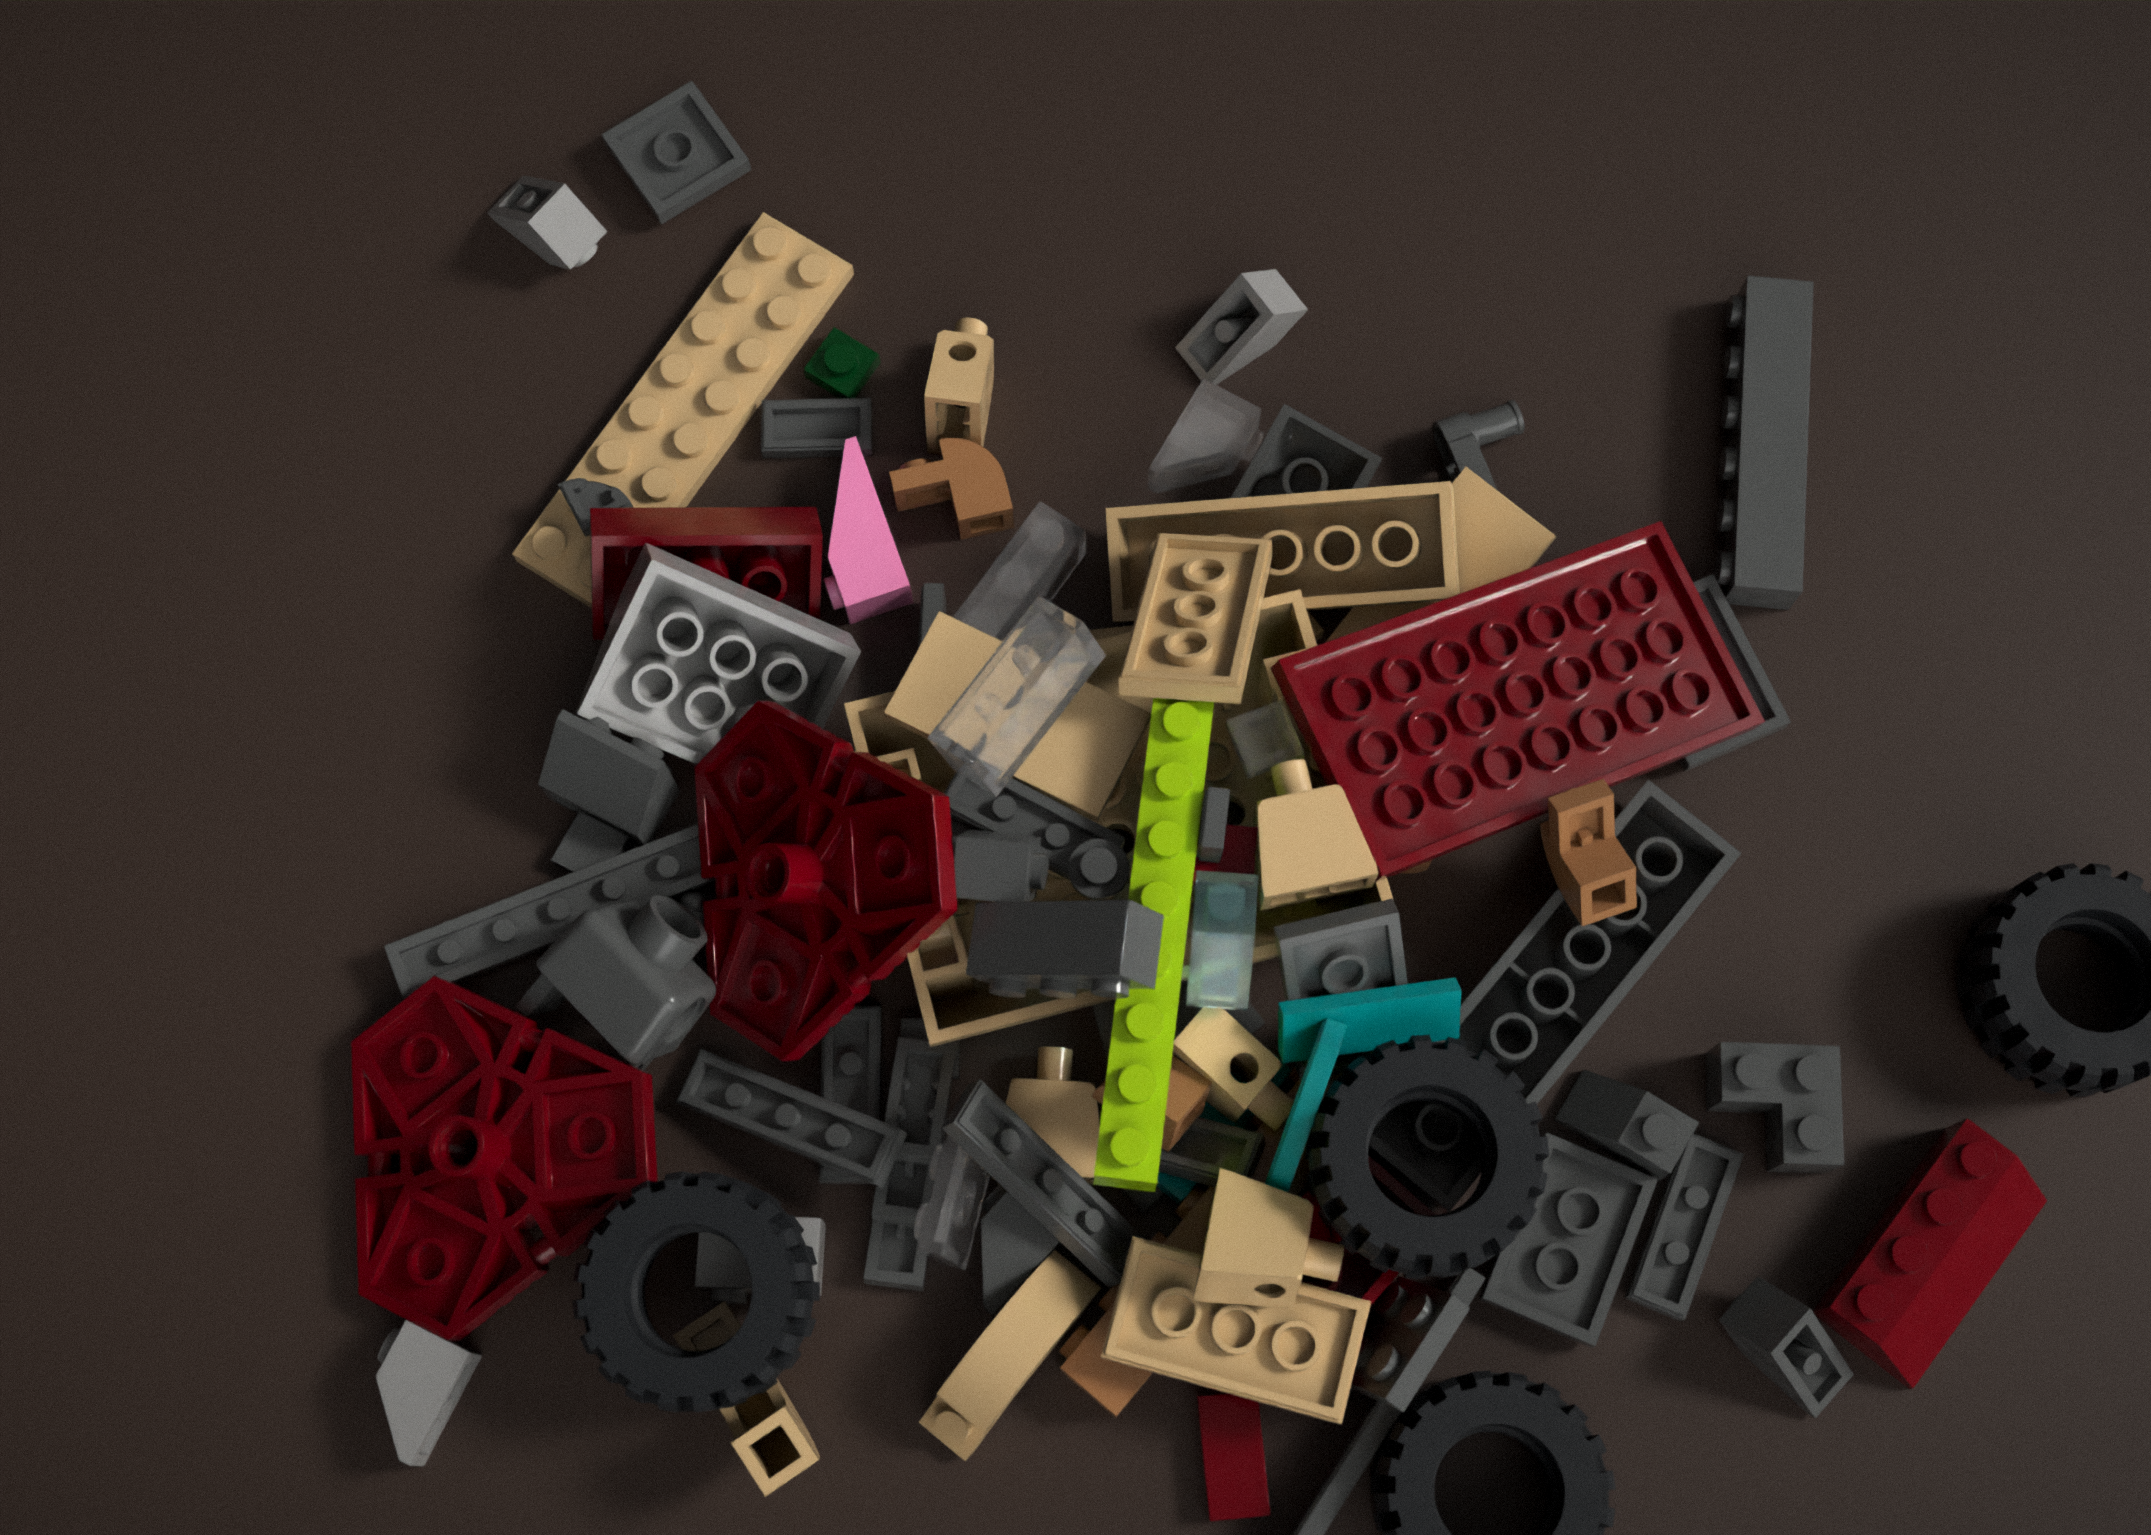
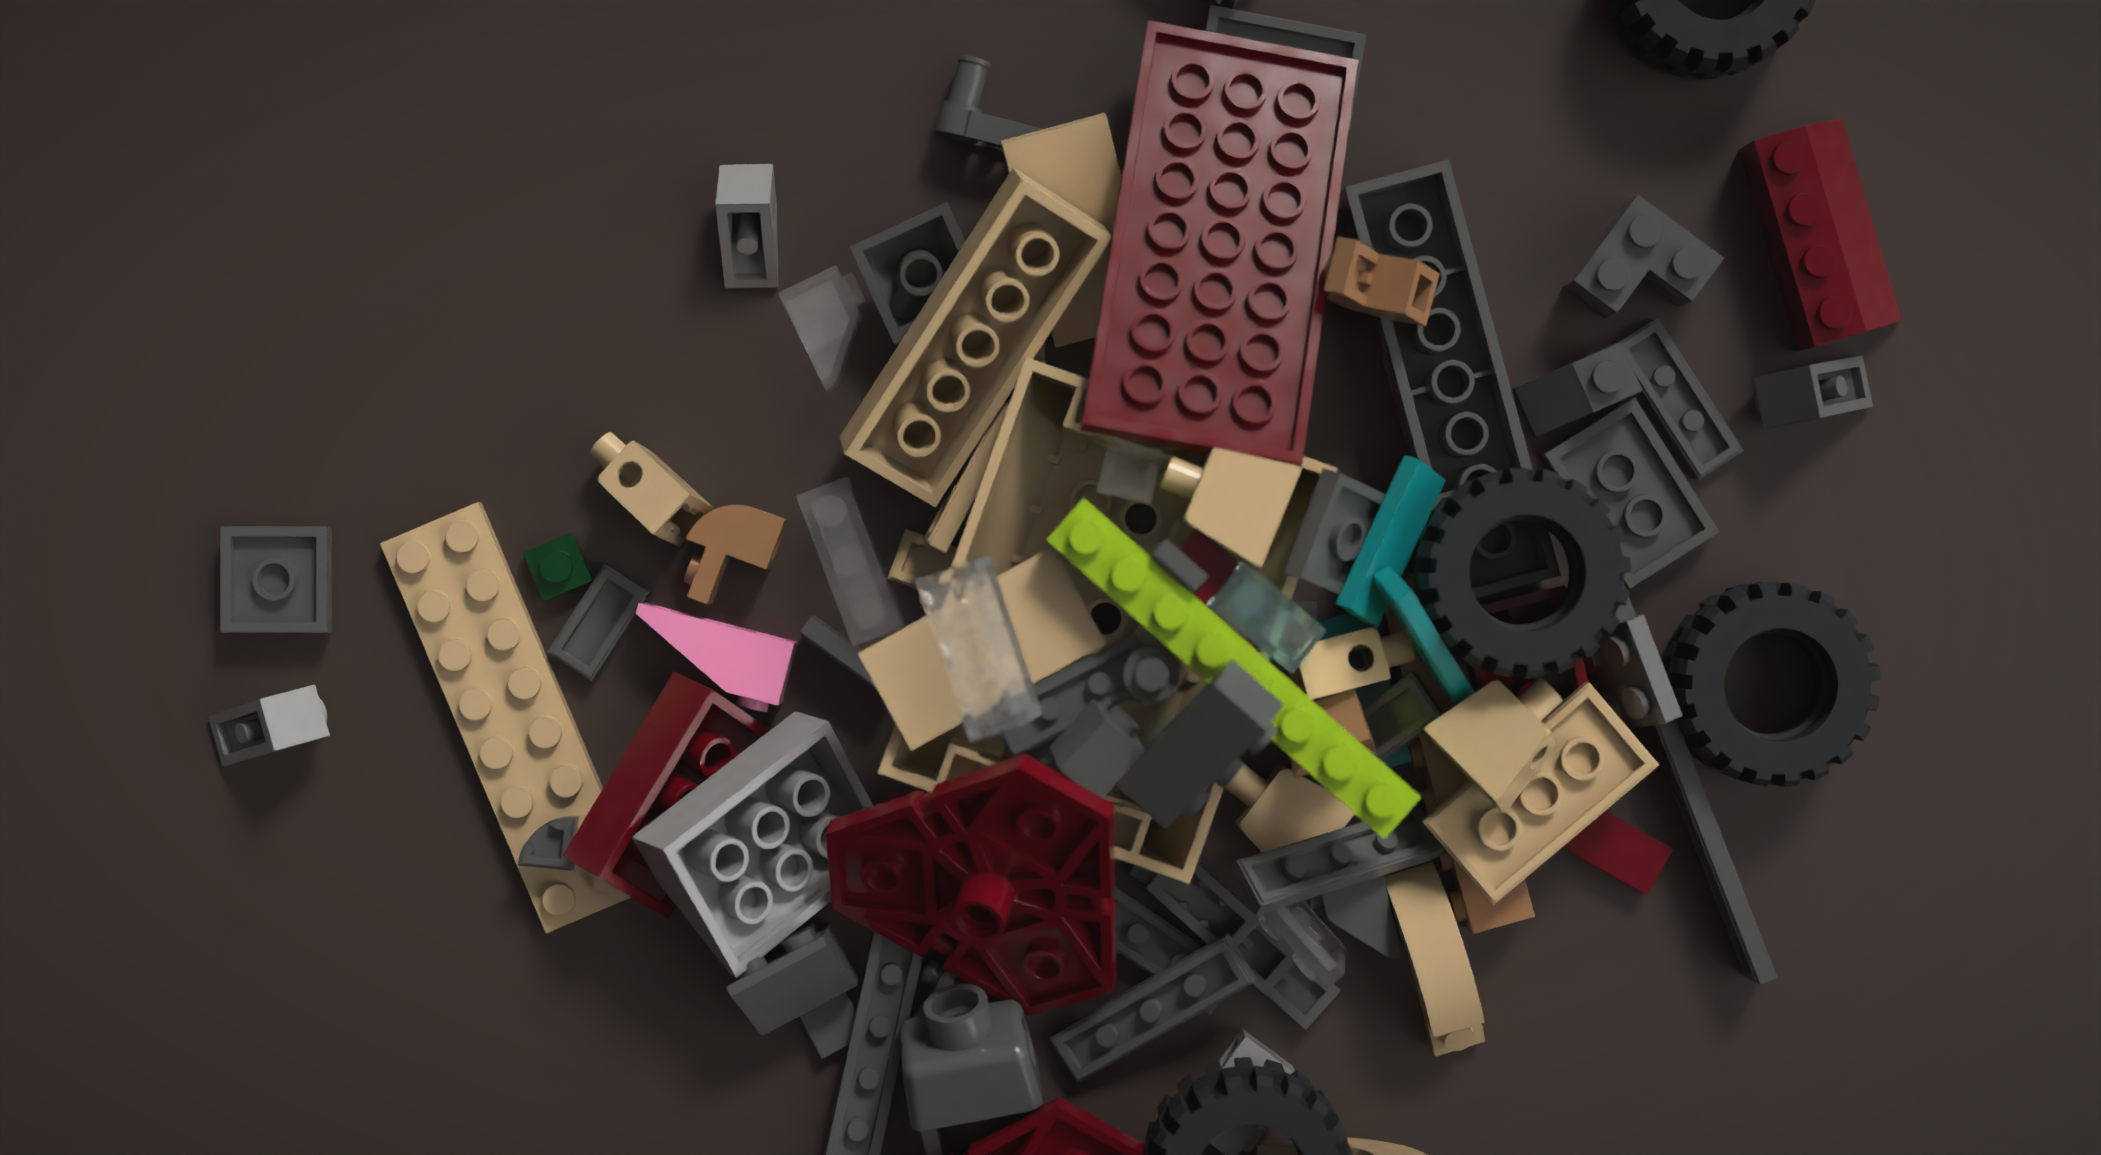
camera: 55 degrees left, 15 degrees up
(1196, 618) = (1001, 458): tan tile -> none

